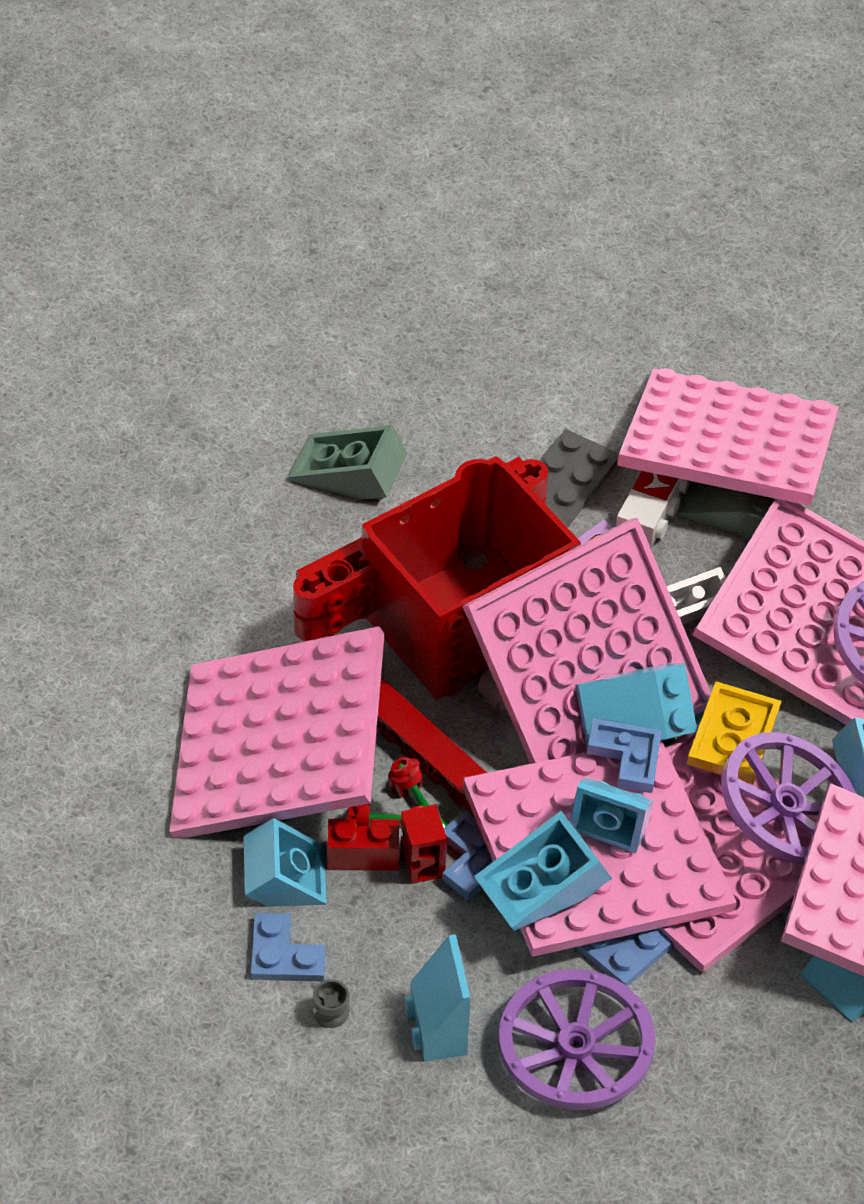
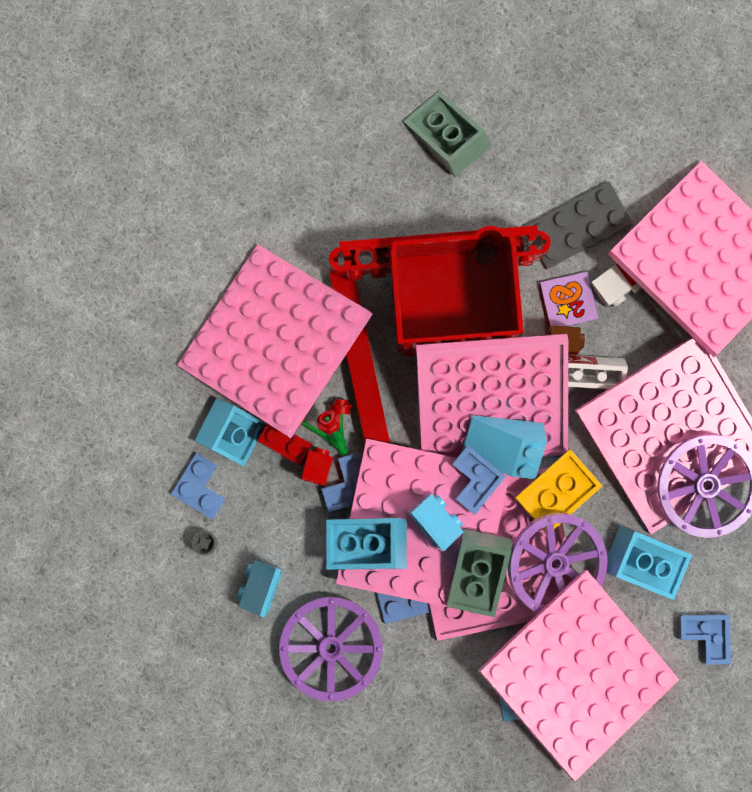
camera: 30 degrees right, 35 degrees up
(704, 844) = (479, 573): none -> sand green slope

